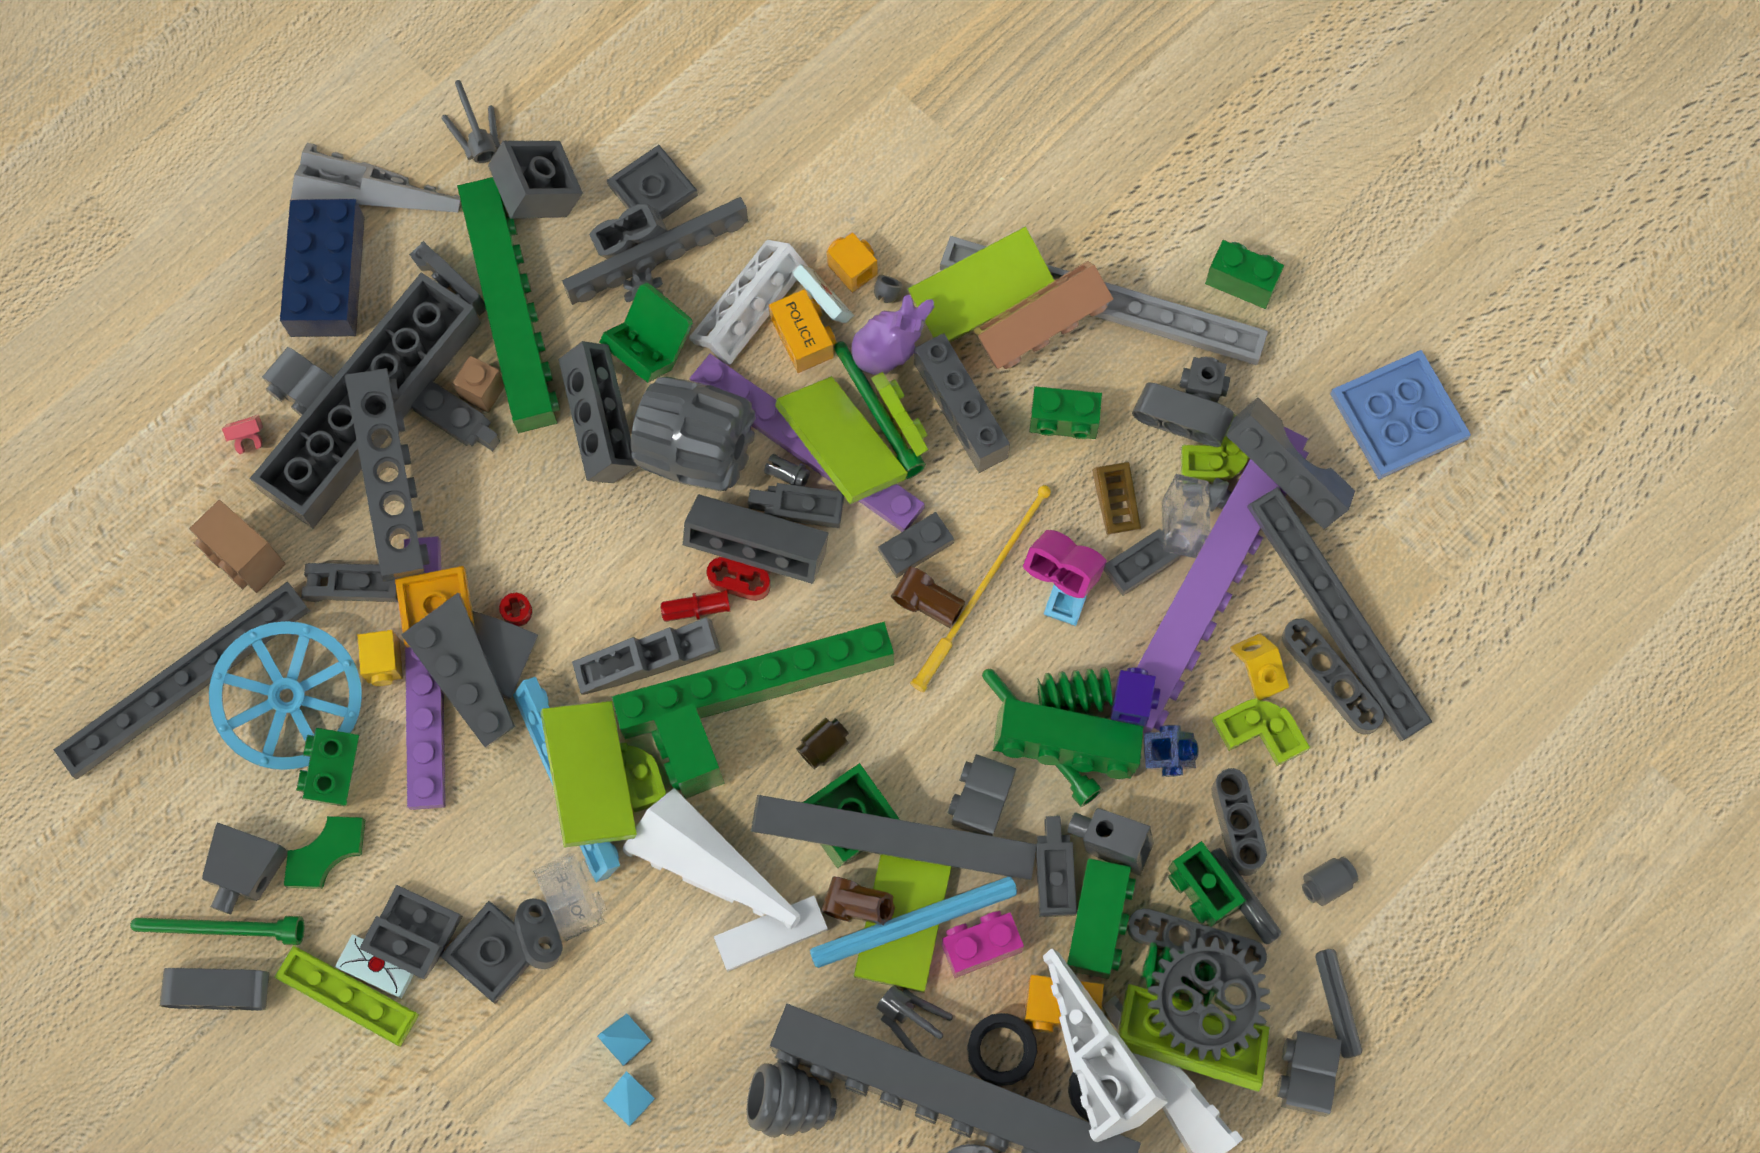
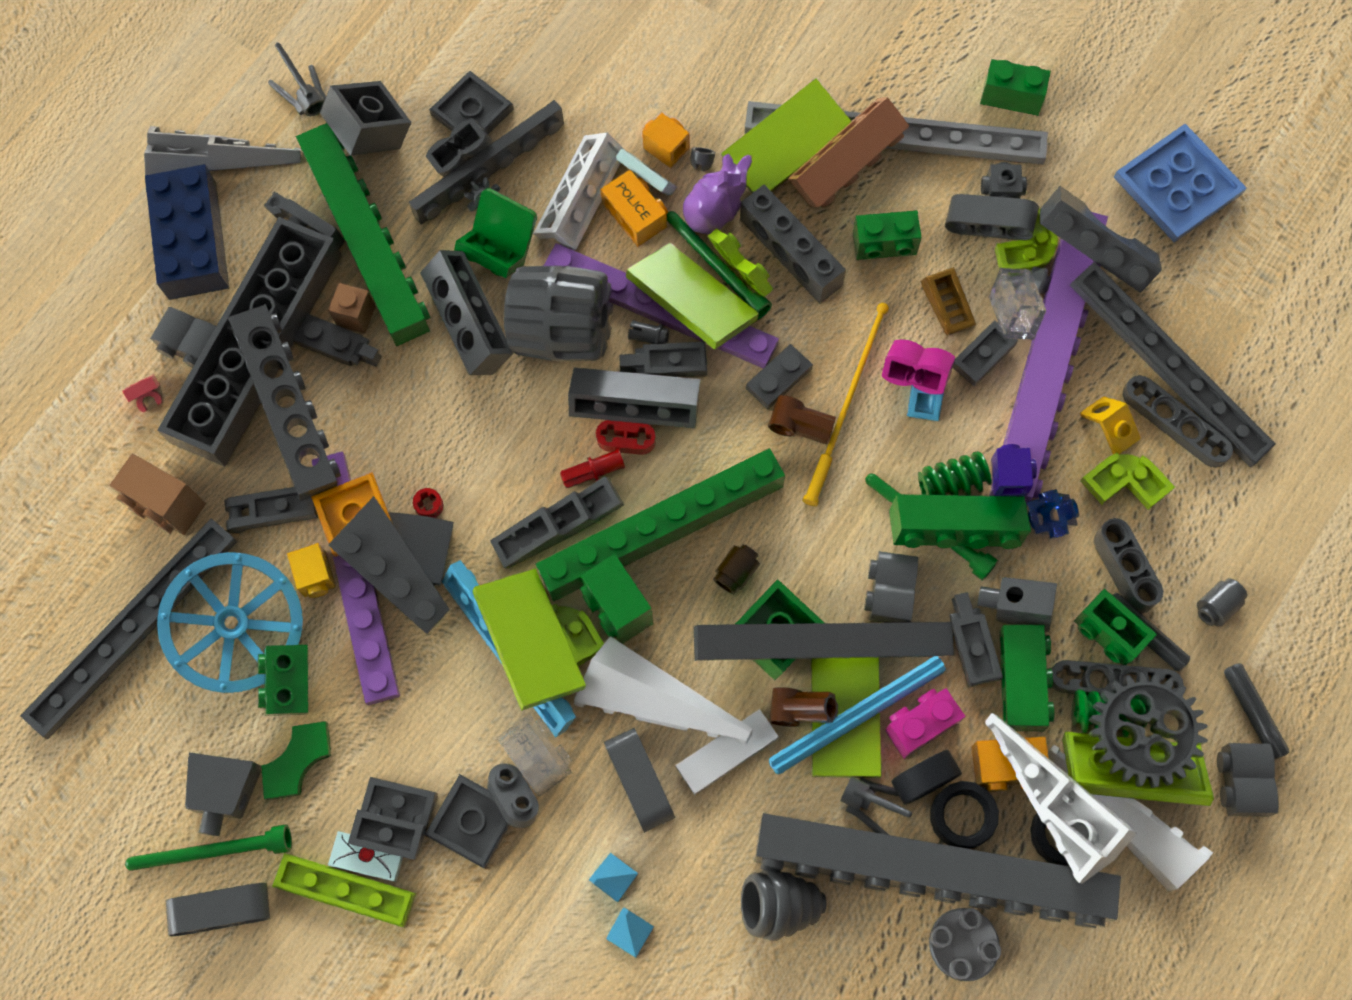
camera: 10 degrees left, 0 degrees up
(672, 944) = (639, 780): none -> dark grey beam
(969, 1001) = (926, 777): none -> black tyre

